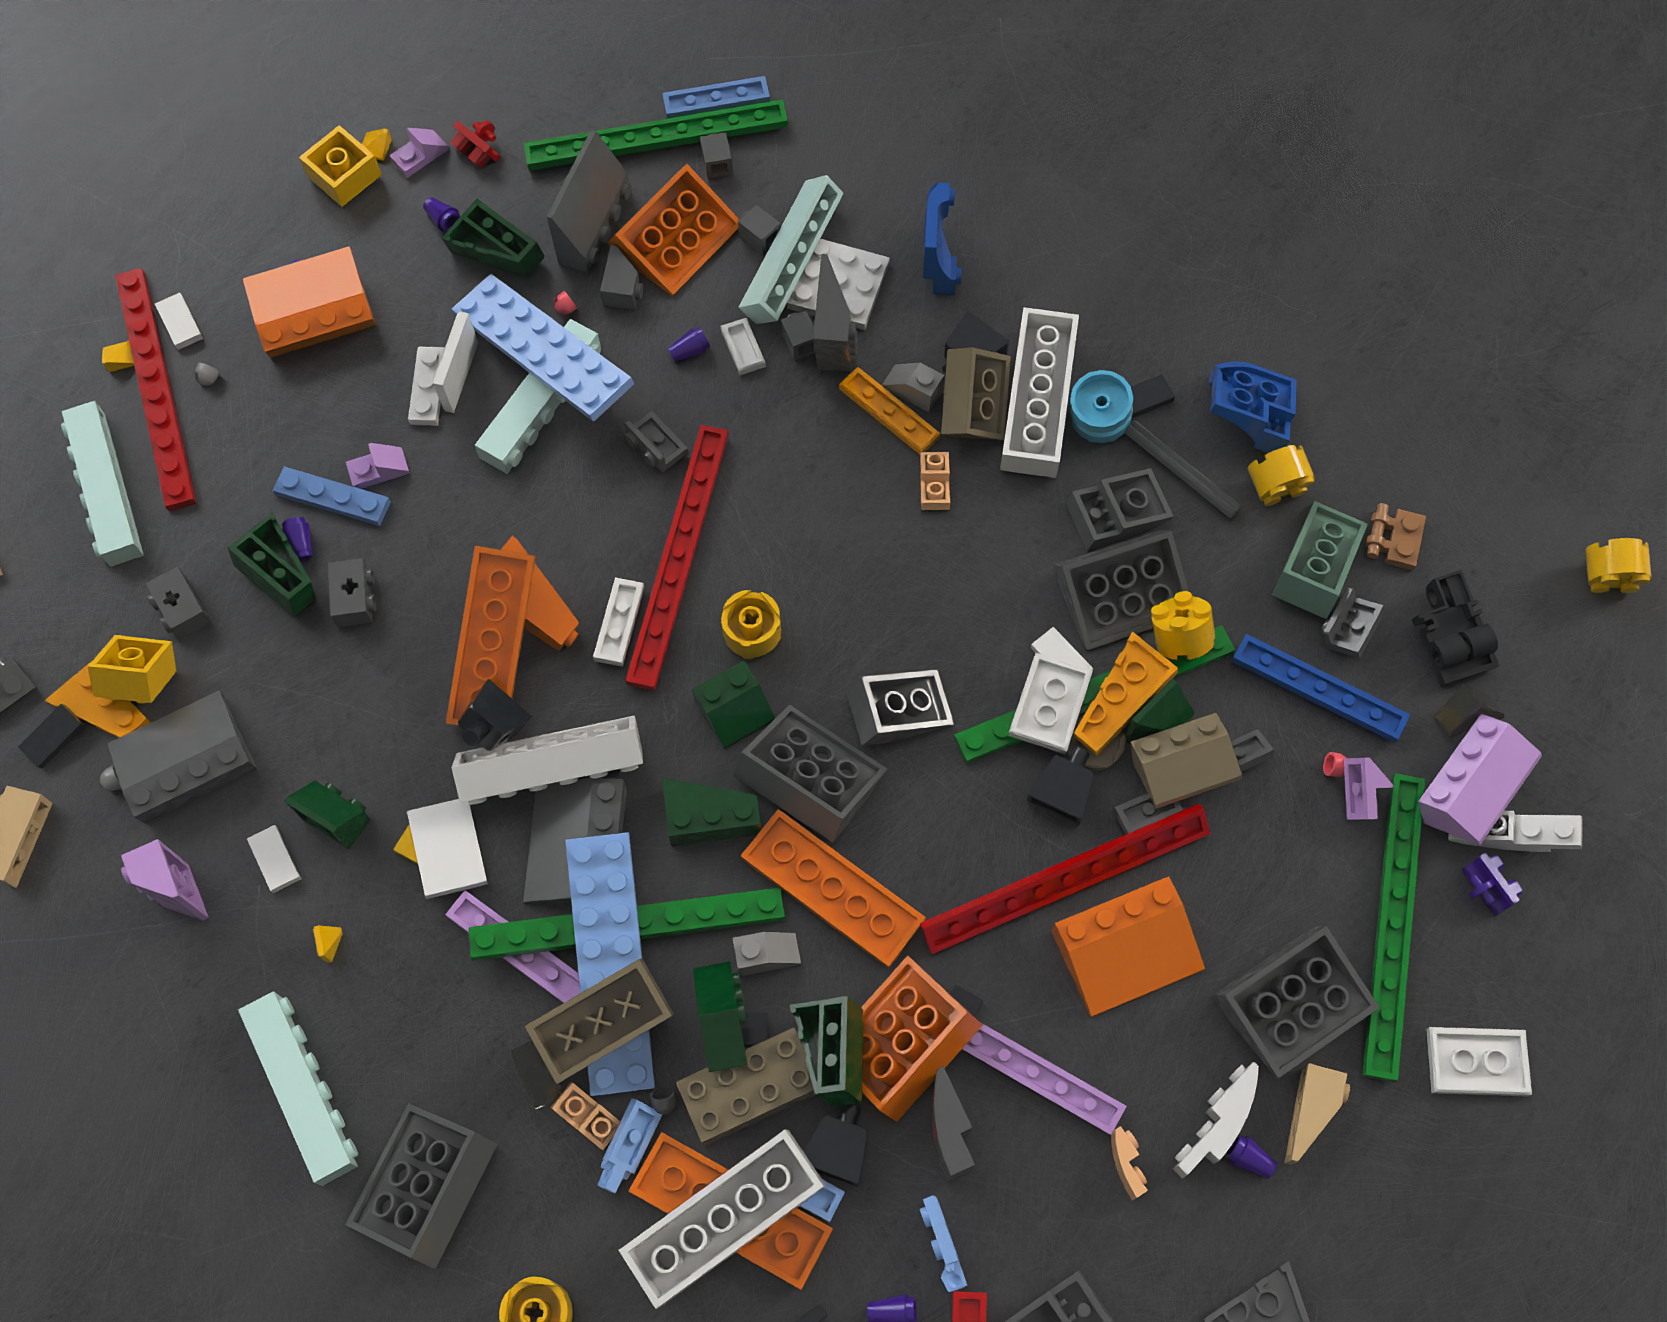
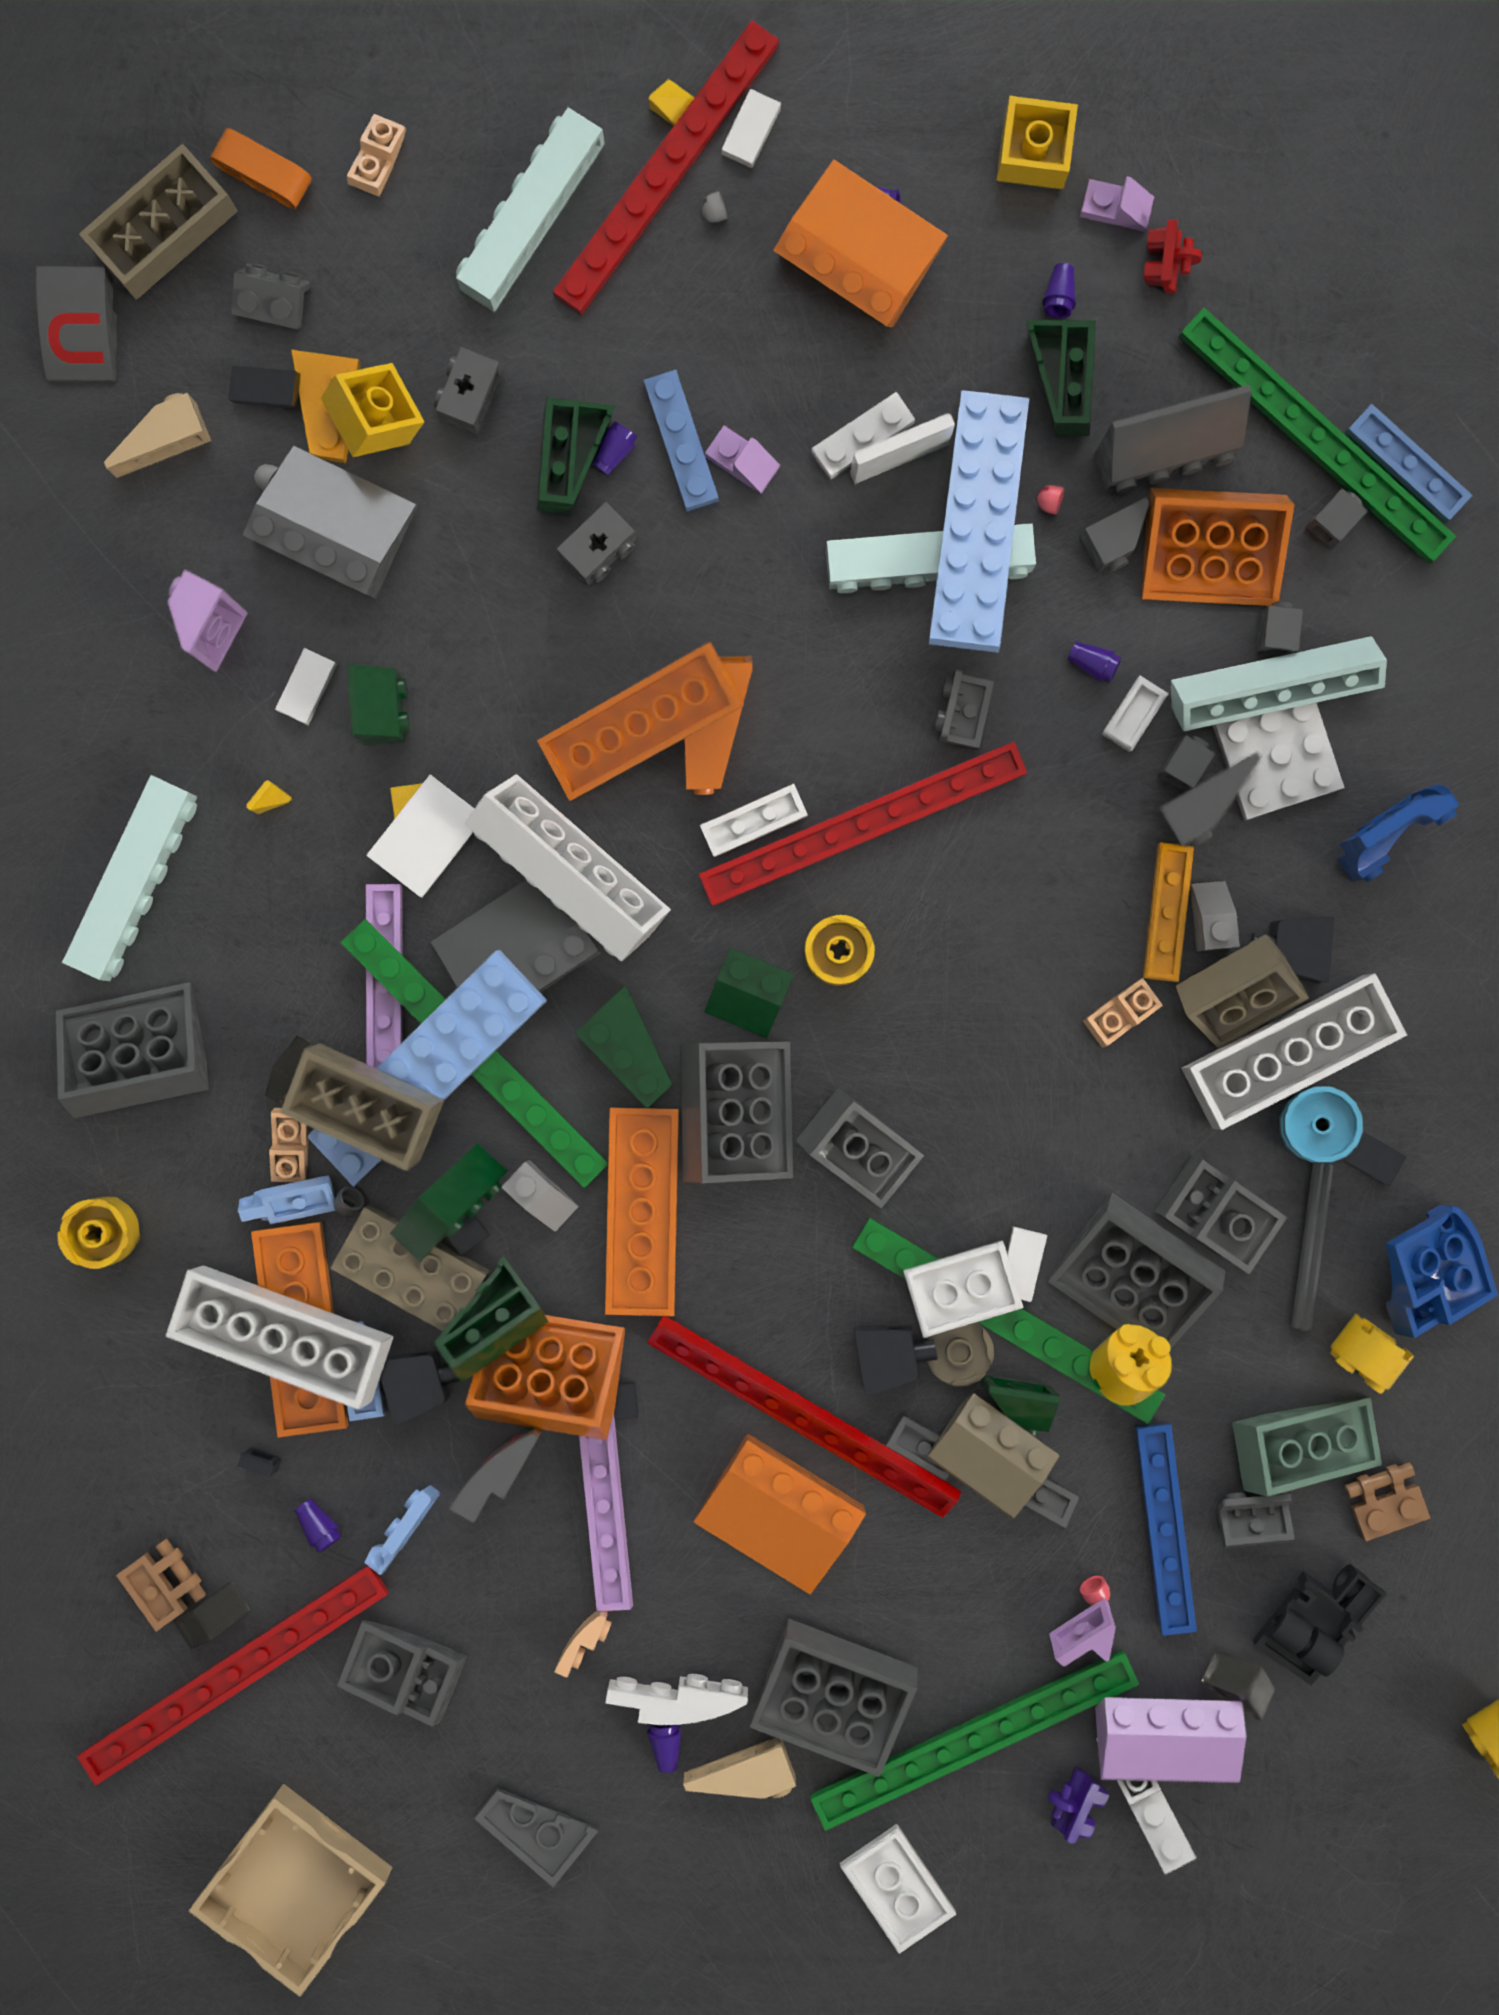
camera: 50 degrees right, 20 degrees up
(378, 142) = (1093, 152): yellow slope -> none
(492, 718) = (564, 785): black torso -> none
(1128, 688) = (1028, 1352): light orange wing -> none

